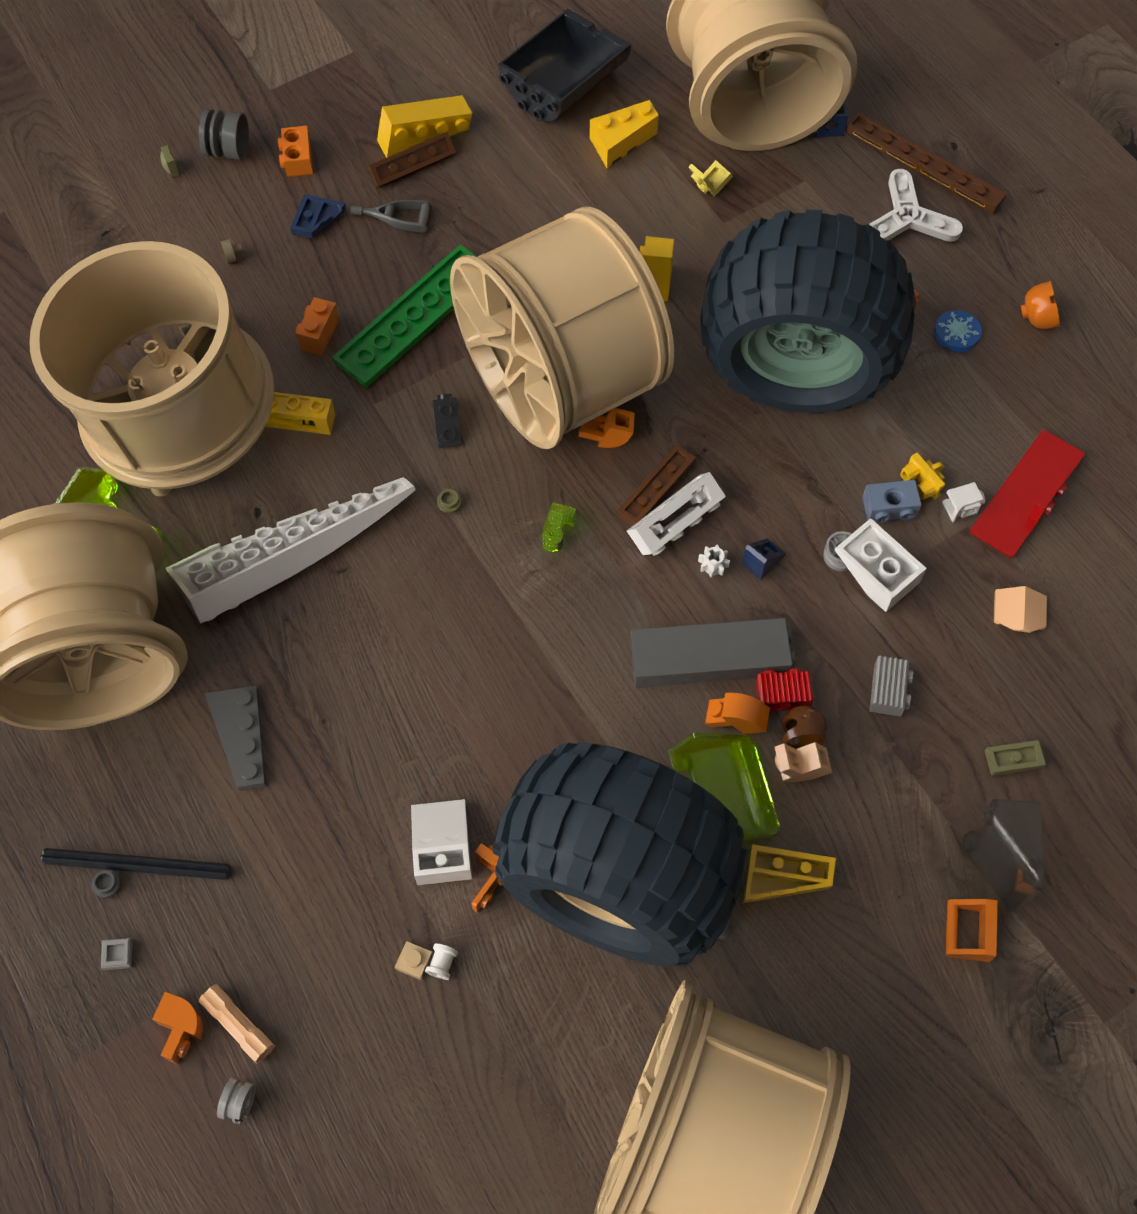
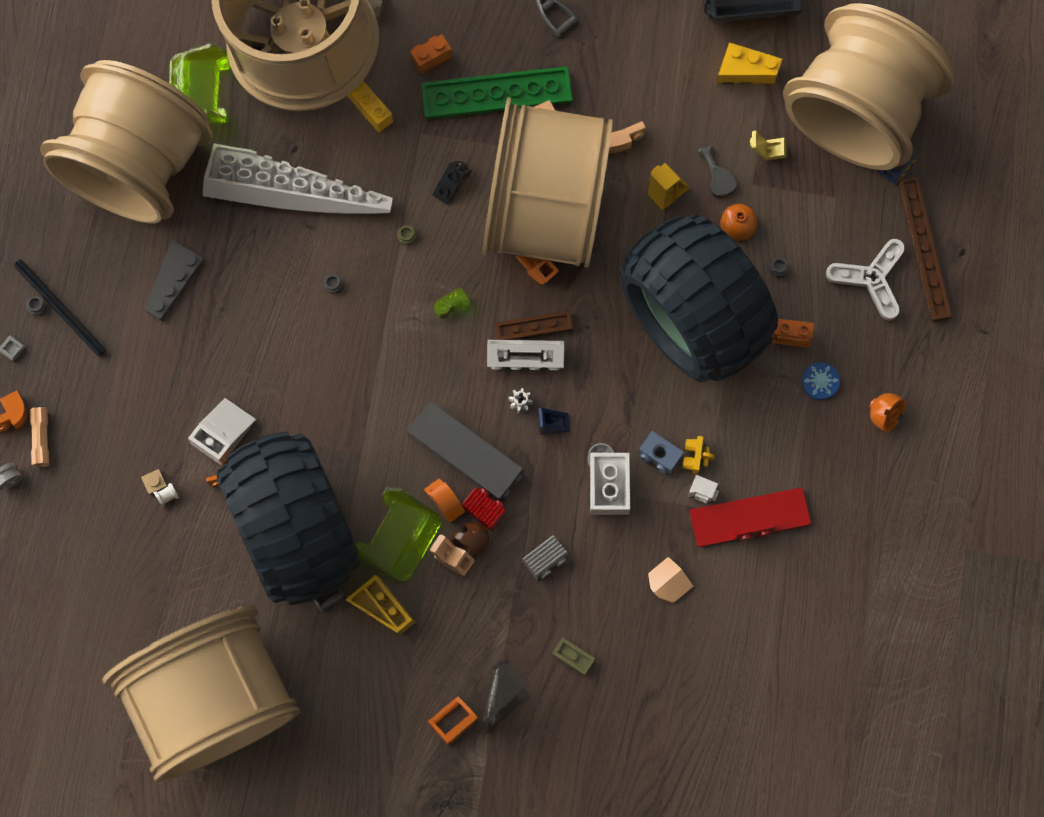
camera: 40 degrees right, 10 degrees up
(417, 603) = (332, 283): none -> dark grey plate
(696, 238) = (722, 180): none -> dark grey piece

